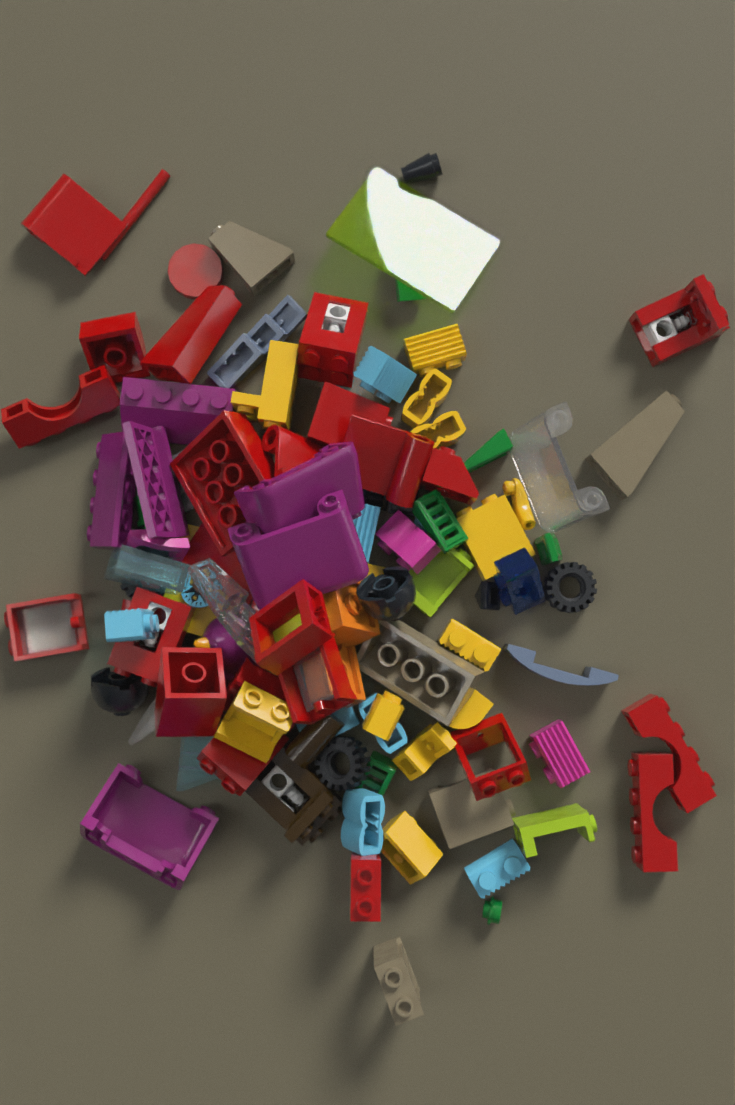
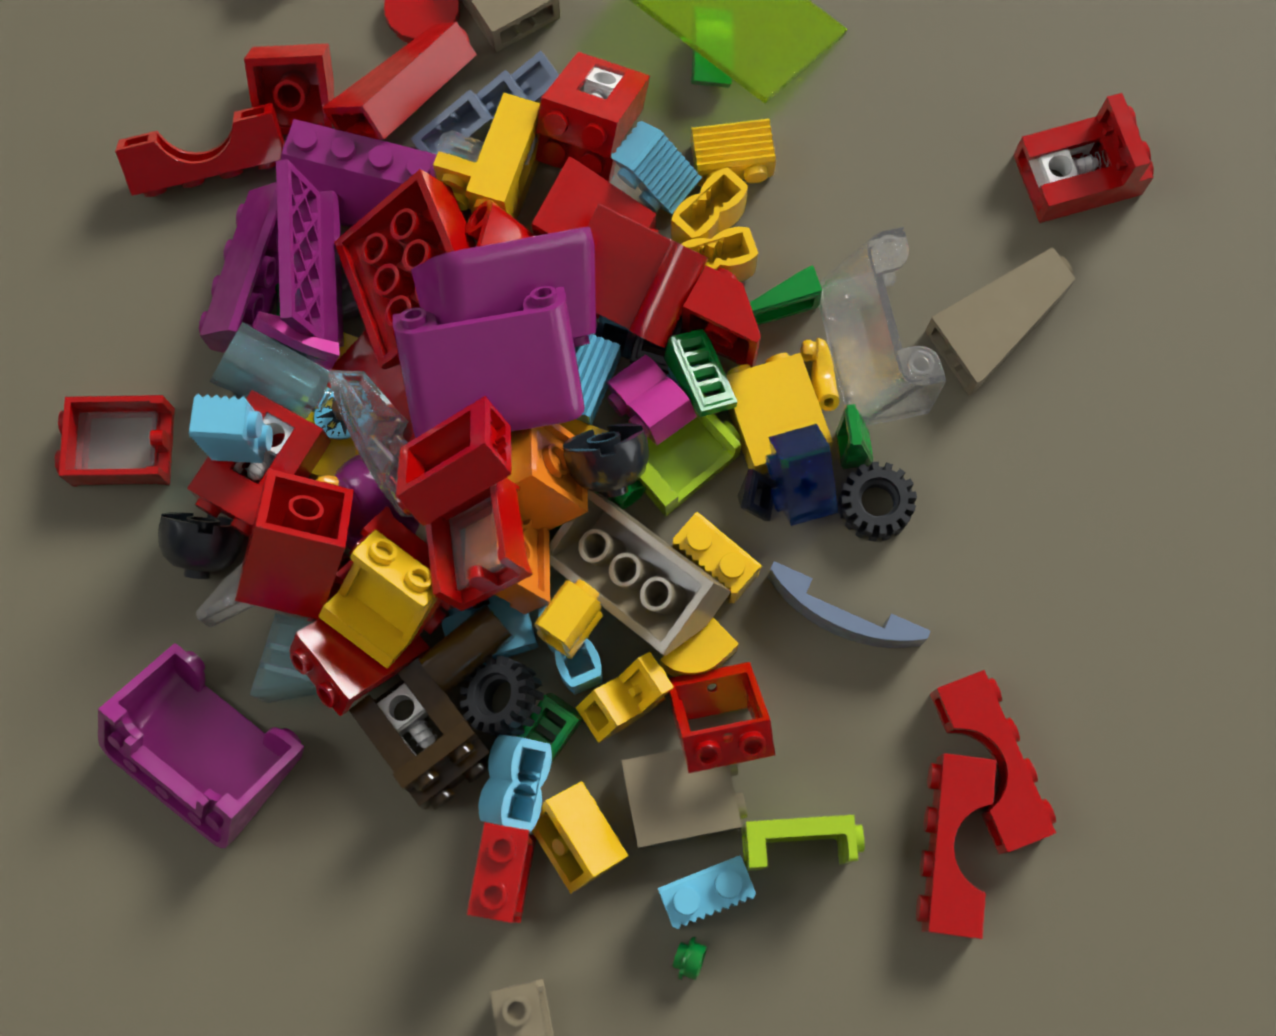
camera: 15 degrees right, 10 degrees down
(247, 381) = (460, 145): none -> clear tile
(559, 754) = (825, 736): dark pink brick -> none

